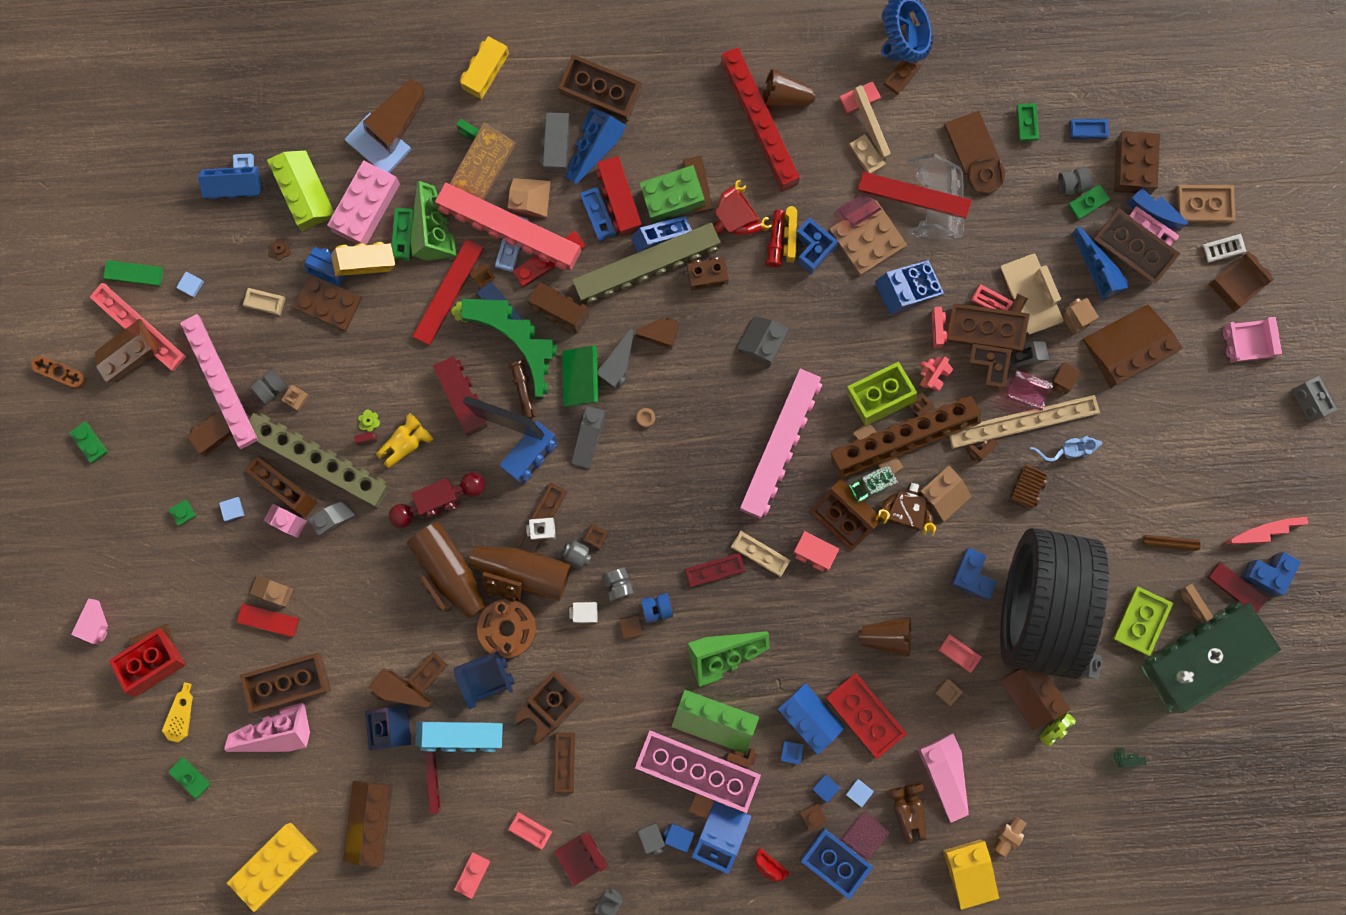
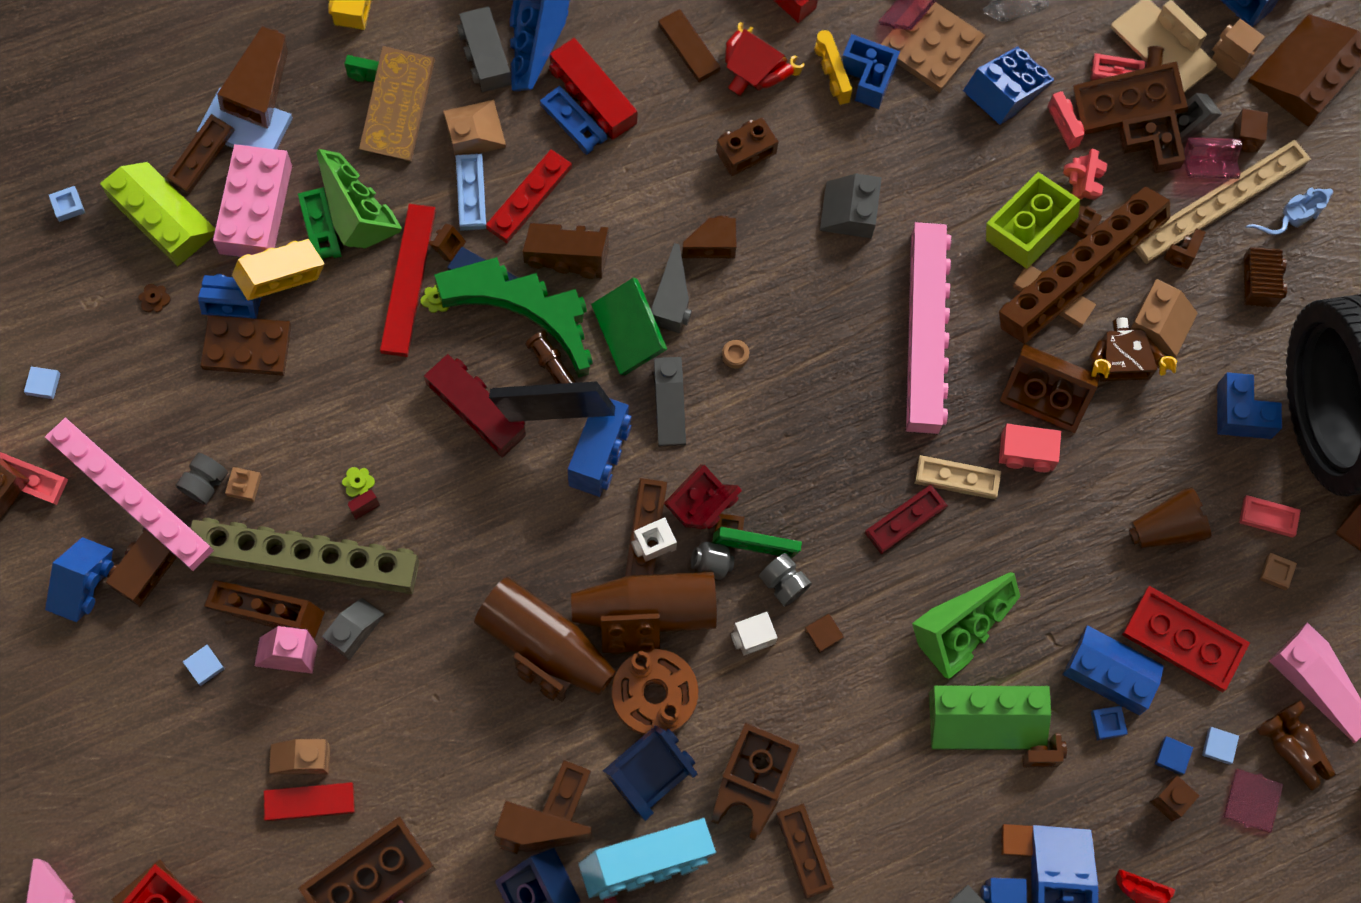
camera: 25 degrees left, 10 degrees down
(169, 426) = (75, 578): none -> blue brick
(182, 513) = (133, 694): green plate -> none
(230, 182) = (56, 230): blue brick -> none
(264, 301) = (155, 372): tan tile -> none
(341, 157) = (200, 153): none -> reddish brown tile
(402, 443) = (418, 494): yellow piece -> none
(436, 499) = (493, 549): dark red brick -> none
(508, 227) = (461, 168): coral brick -> none
(583, 512) = (701, 499): none -> dark red bracket
(608, 553) = (756, 542): none -> green tile
(646, 264) = (662, 159): olive brick -> none
(660, 232) = (664, 119): blue slope -> none
(664, 608) = (859, 588): blue wheel -> none
(672, 194) = (663, 63): bright green brick -> none
(698, 771) = (995, 792): bright pink brick -> none
(772, 247) = (819, 88): red pin -> none
(836, 863) = (1233, 849): blue brick -> none
(873, 483) = (1070, 333): clear green brick -> none

